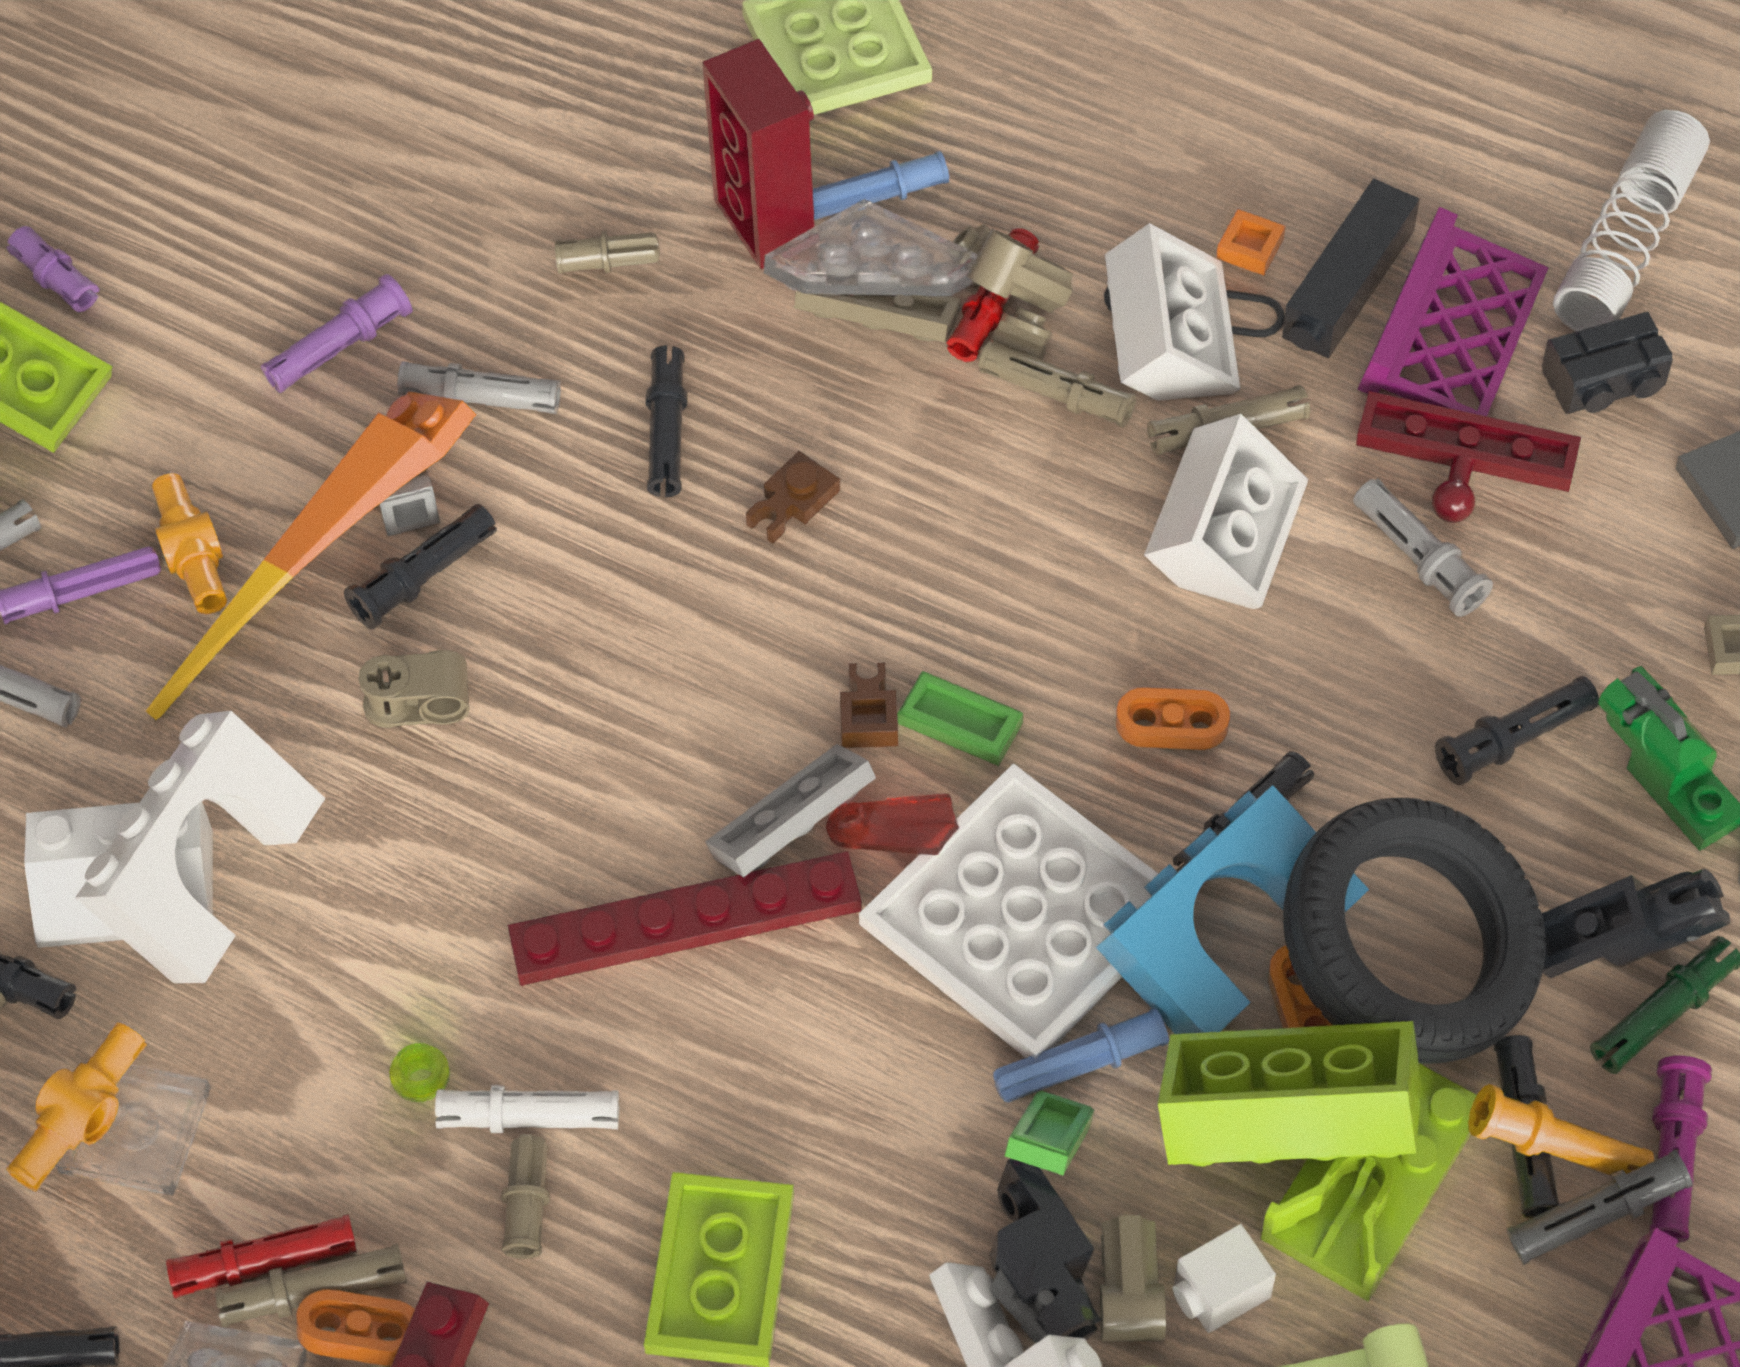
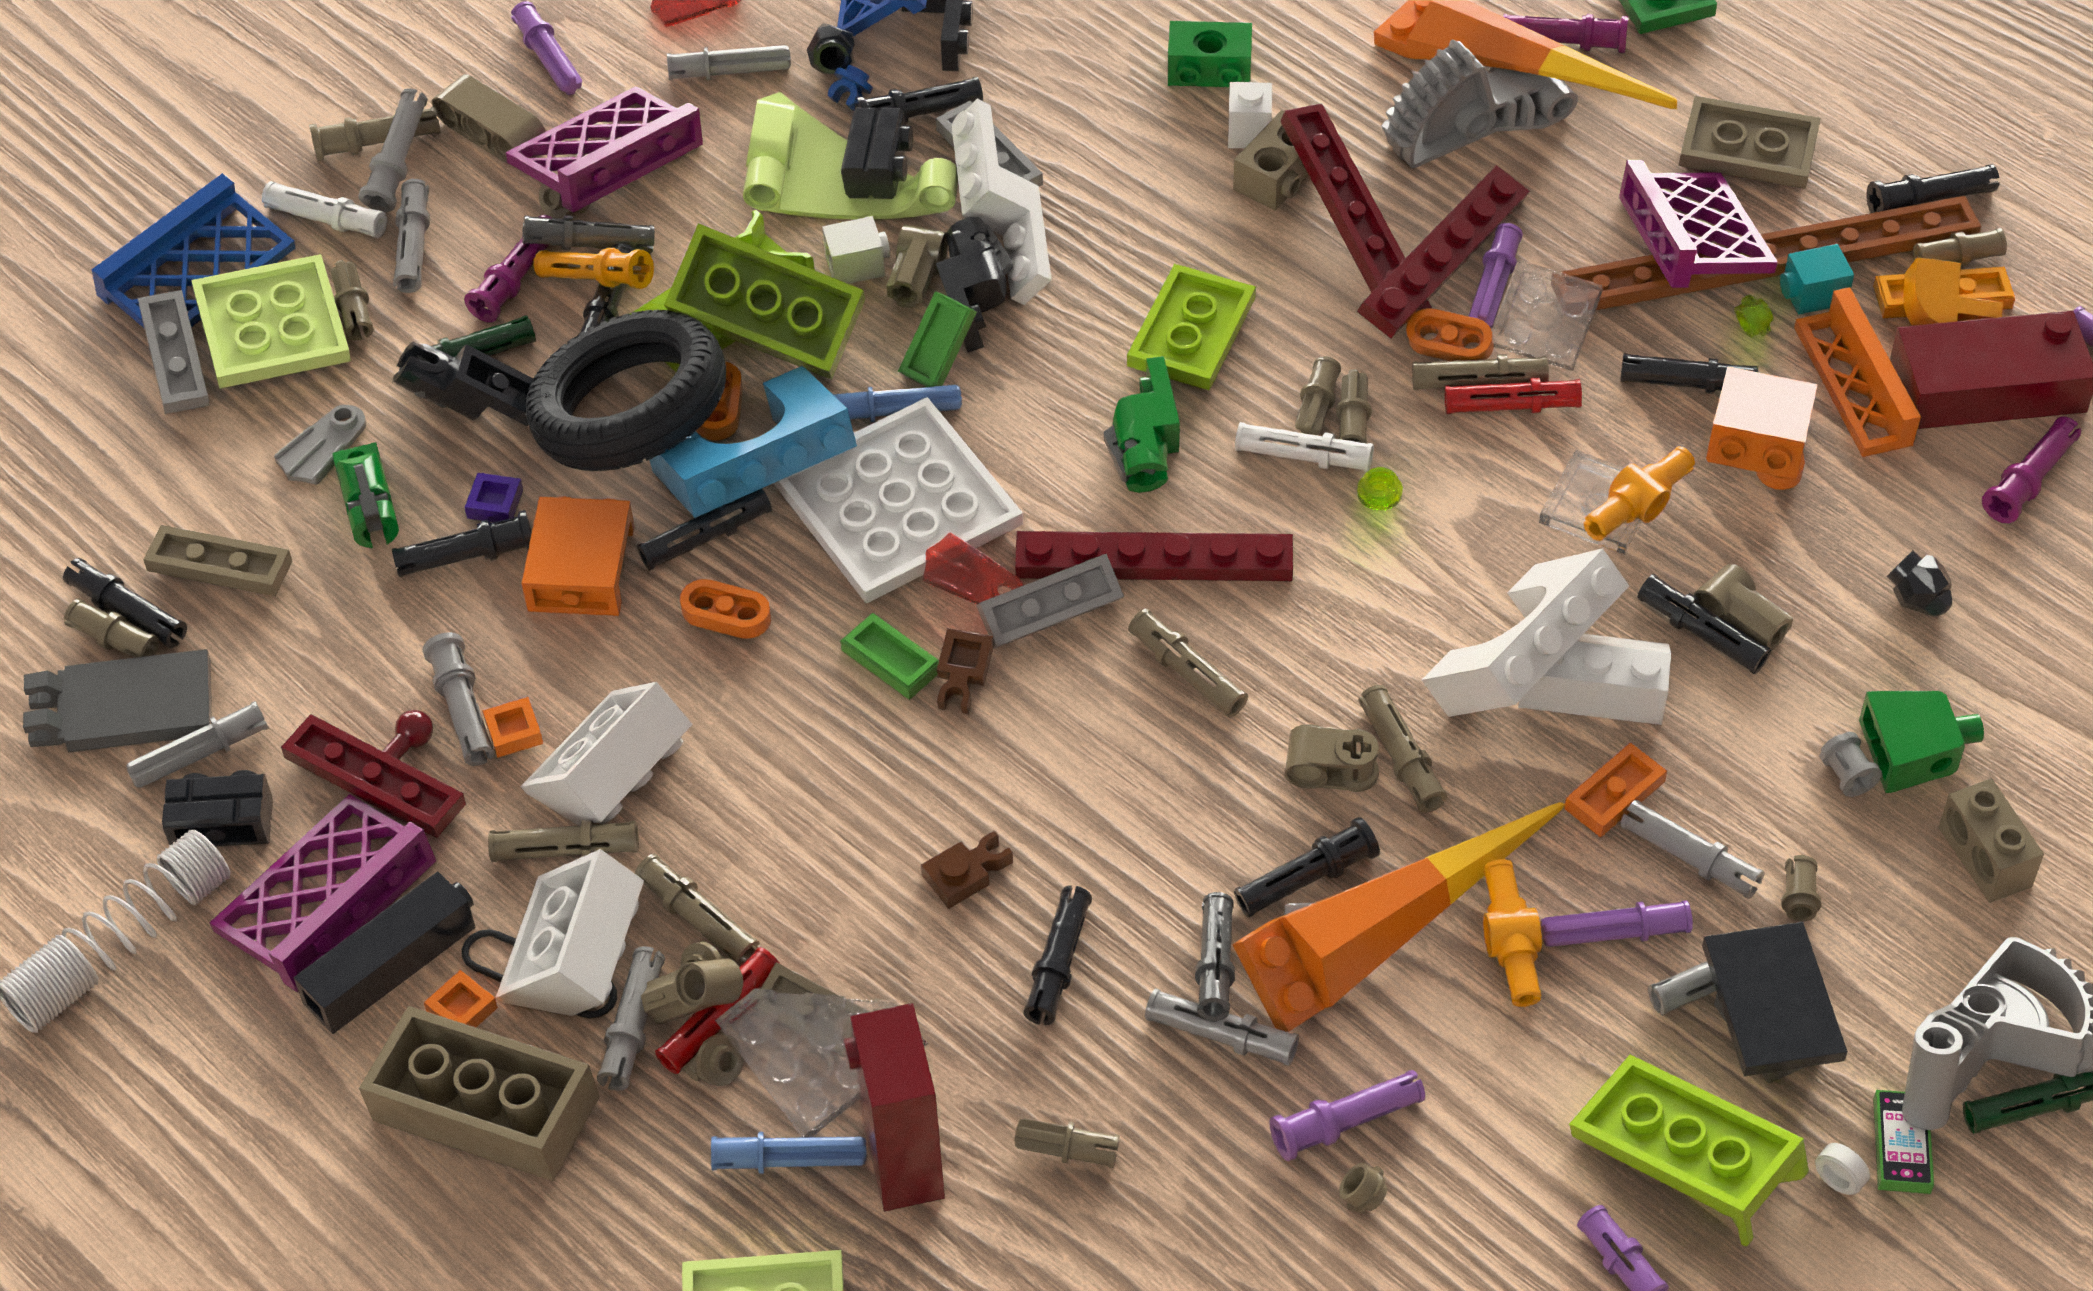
camera: 165 degrees left, 5 degrees down
(87, 730) = (1611, 789): none -> orange plate
(309, 269) = (1363, 1188): none -> dark tan plate
(325, 710) = (1409, 761): none -> dark tan pin
(473, 1185) = (1354, 407): none -> dark tan axle
(494, 420) = (1215, 970): none -> dark grey pin
(627, 786) = (1151, 630): none -> dark tan pin
(738, 1077) = (1145, 431): none -> green plate
(1074, 252) = (626, 1035): none -> light grey pin
(1185, 153) = (480, 1092): none -> dark tan brick
(1346, 526) = (512, 727): none -> orange plate
(1376, 734) = (577, 555): none -> orange panel
(1516, 796) = (493, 497): none -> dark purple plate
(1661, 445) = (197, 745): none -> light grey axle

